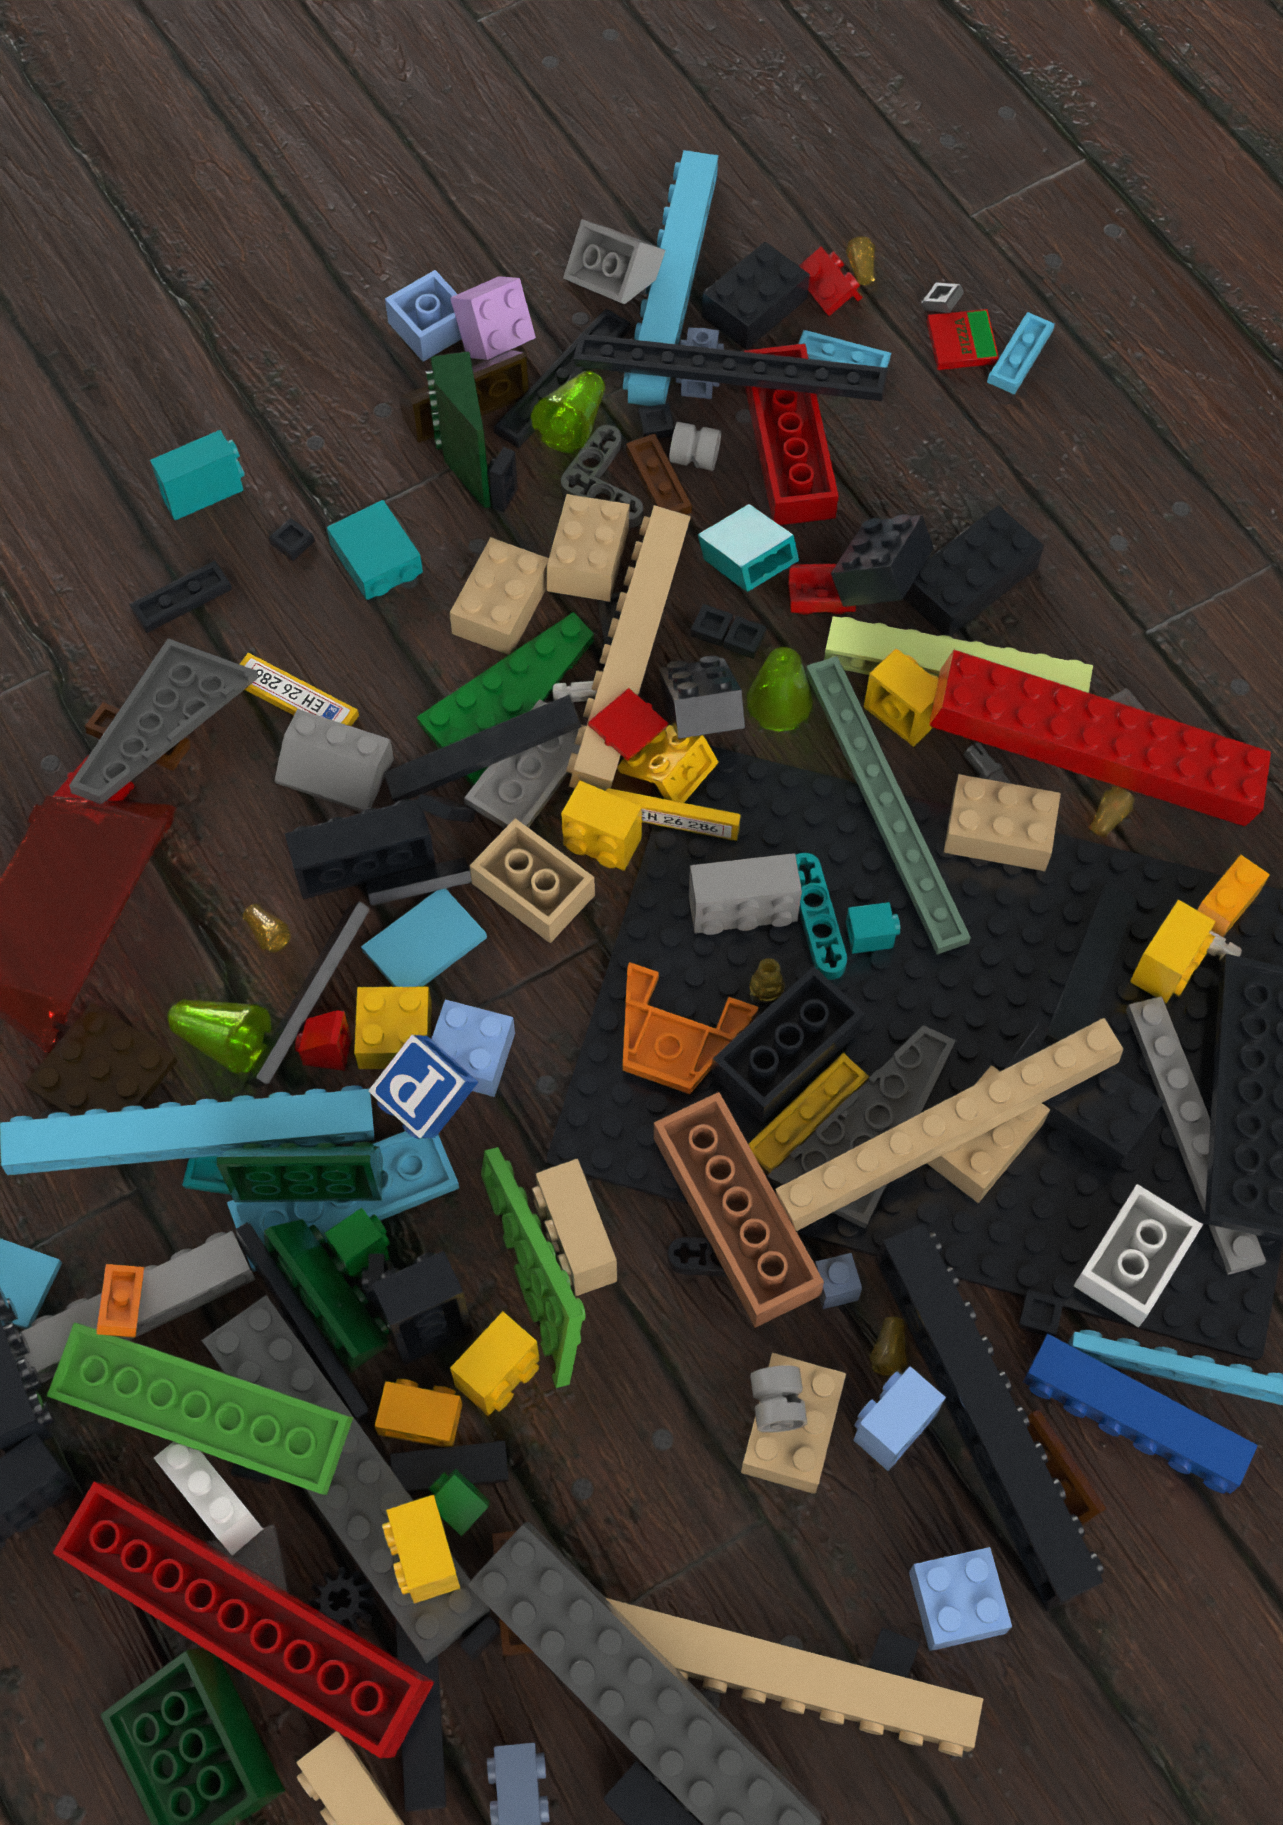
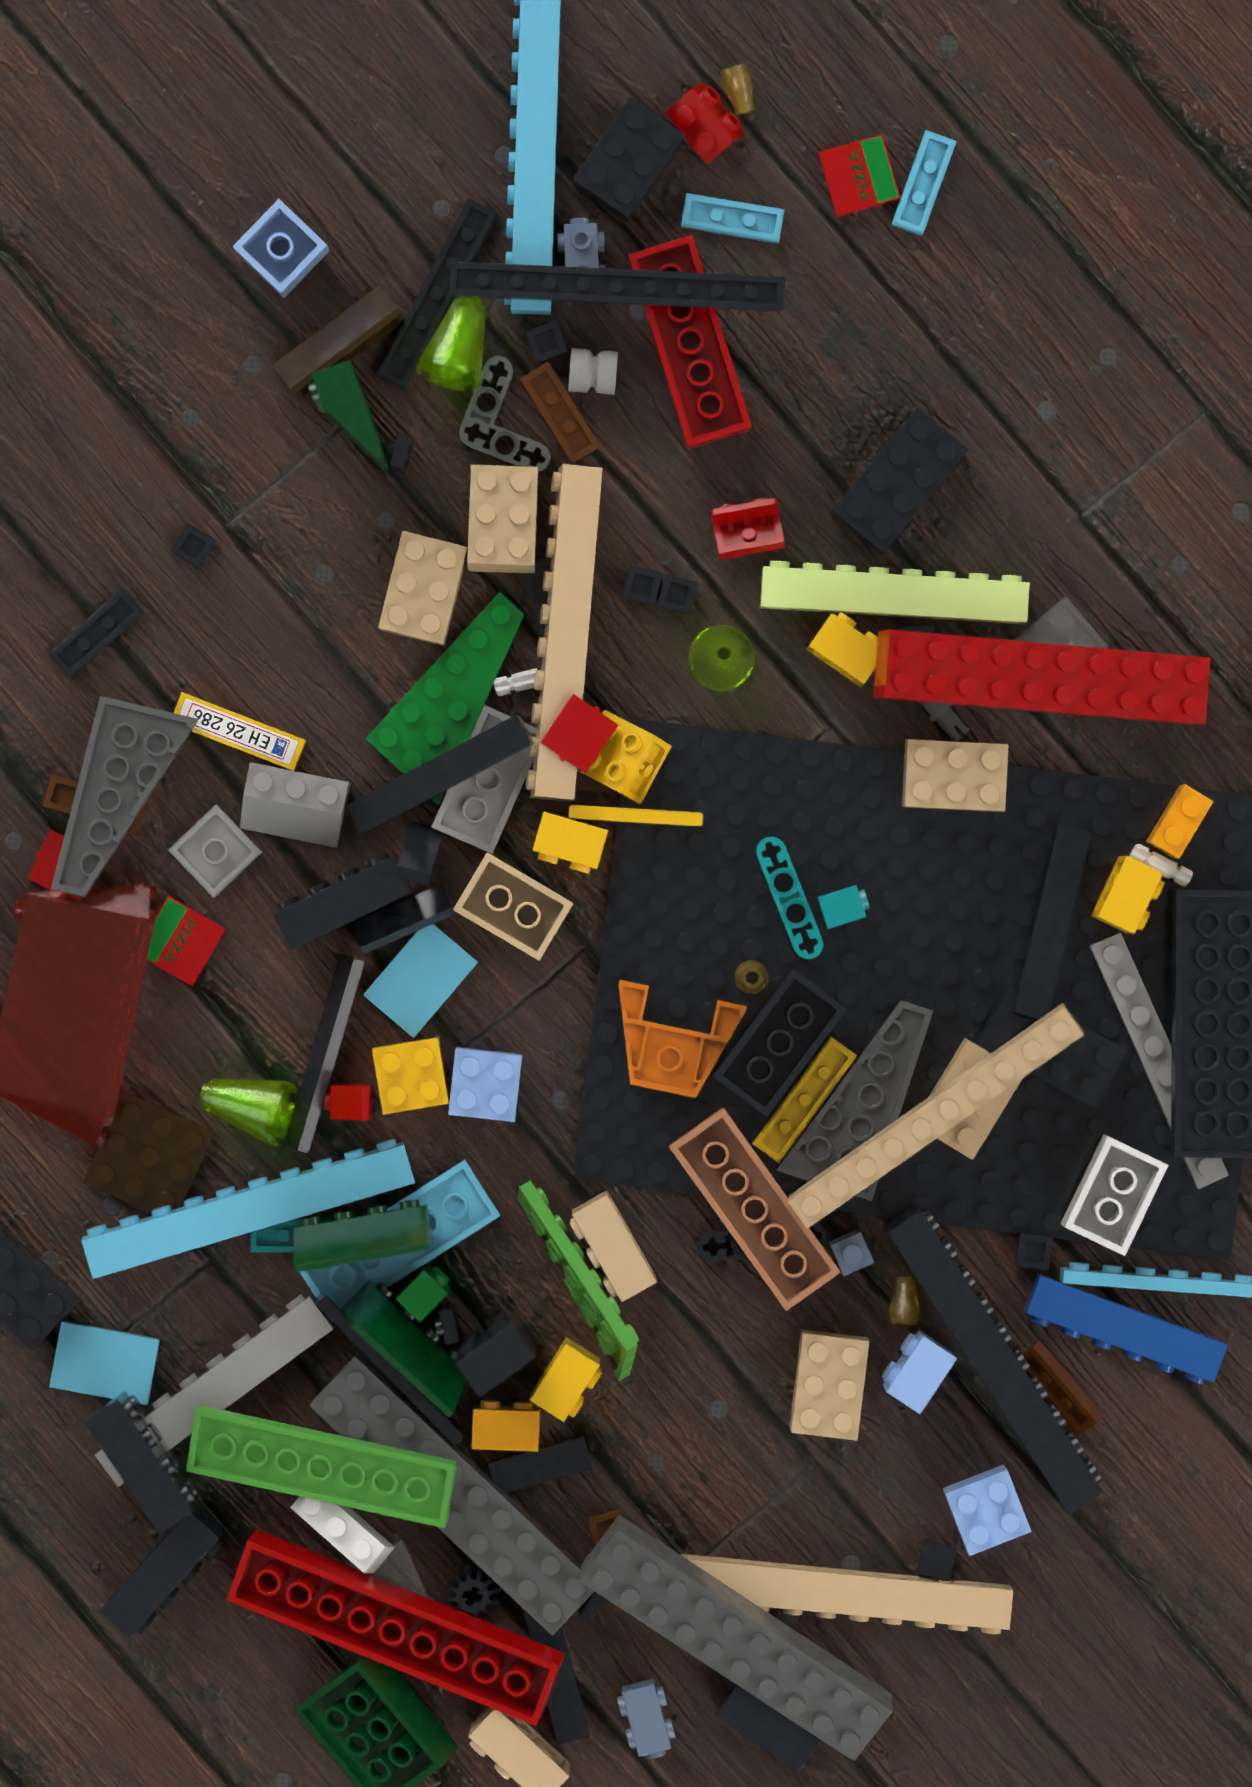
camera: 10 degrees left, 25 degrees up
(120, 1300) = (230, 1383): orange plate -> none
(189, 872) = (183, 940): none -> tile
(198, 474) = (84, 498): teal brick -> none
(245, 797) = (215, 851): none -> light grey tile
(268, 930) = (269, 990): clear yellow cone -> none
(375, 550) = (284, 552): teal brick -> none
(422, 1087) = (454, 1142): piece -> none
(423, 1550) = (538, 1563): yellow brick -> none
(458, 1500) = (554, 1498): green brick -> none
(493, 317) = (353, 252): lavender brick -> none
(612, 262) = (468, 148): light grey slope -> none
(701, 697) = (646, 690): black brick -> none
(744, 893) = (719, 900): light grey brick -> none
(748, 547) = (666, 495): brick -> none
(779, 1403) = (814, 1383): light grey wheel -> none
(882, 560) = (806, 500): black brick -> none
(888, 806) = (840, 766): sand green plate -> none
(942, 297) = (832, 125): dark grey tile -> none
(1113, 808) = (1060, 735): clear yellow cone -> none

